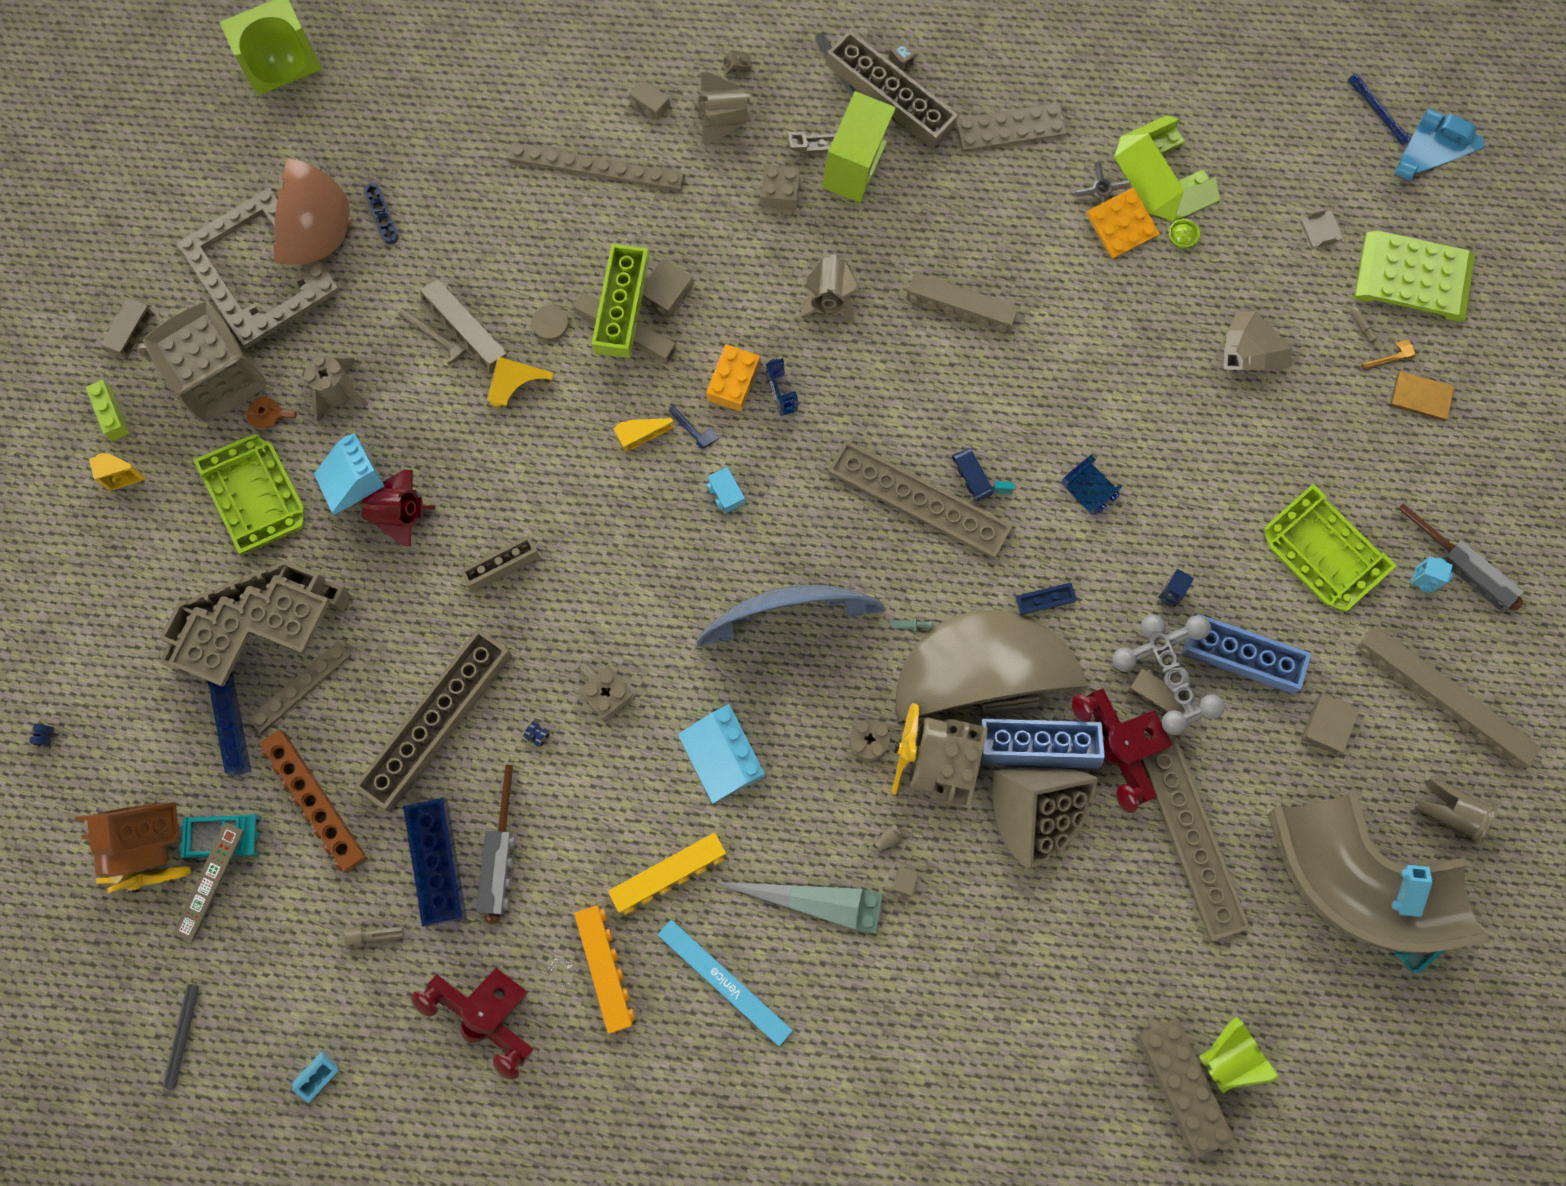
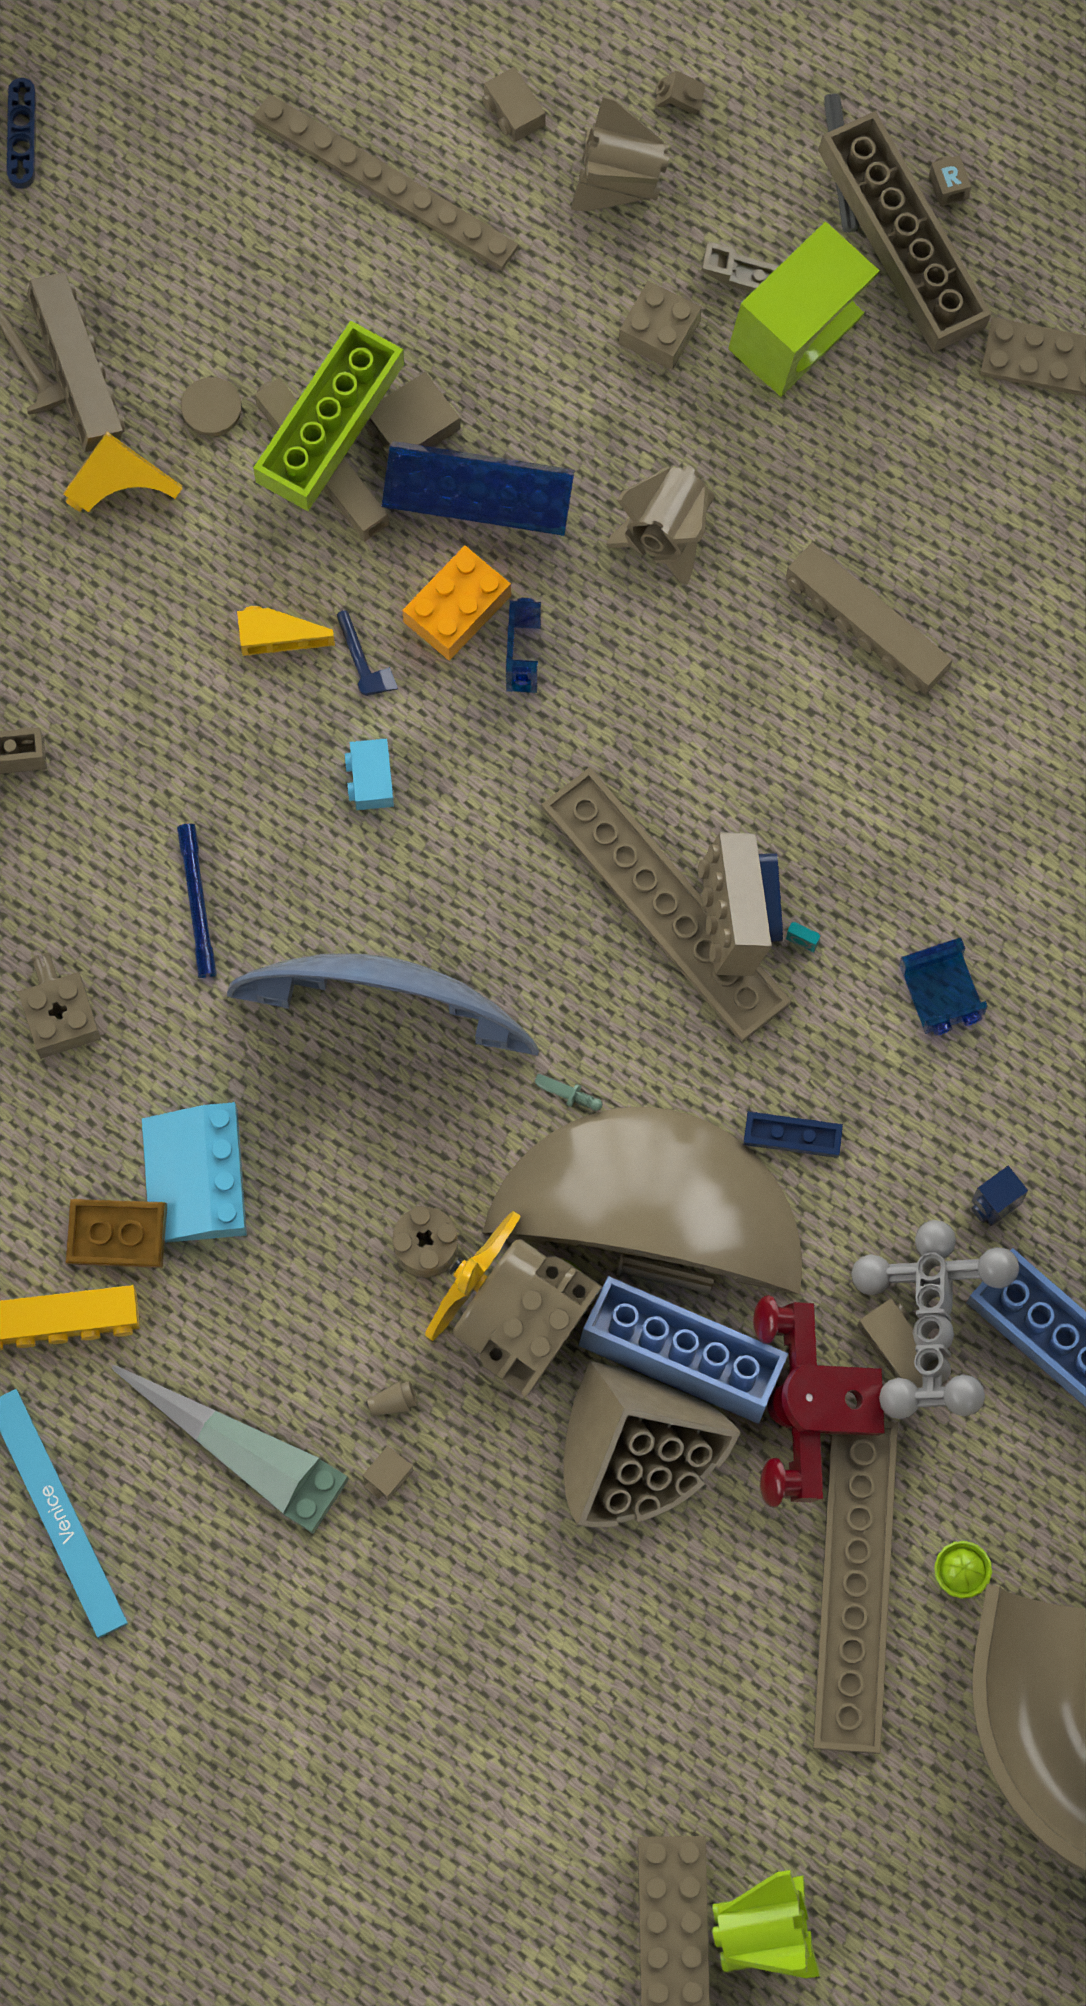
camera: 20 degrees right, 0 degrees up
(641, 572) = (203, 950): none -> clear blue piece
(691, 805) = (116, 1233): none -> pearl gold tile
(719, 310) = (478, 488): none -> clear blue brick
(962, 483) = (735, 904): none -> dark tan brick
(1248, 804) = (963, 1569): none -> lime hat

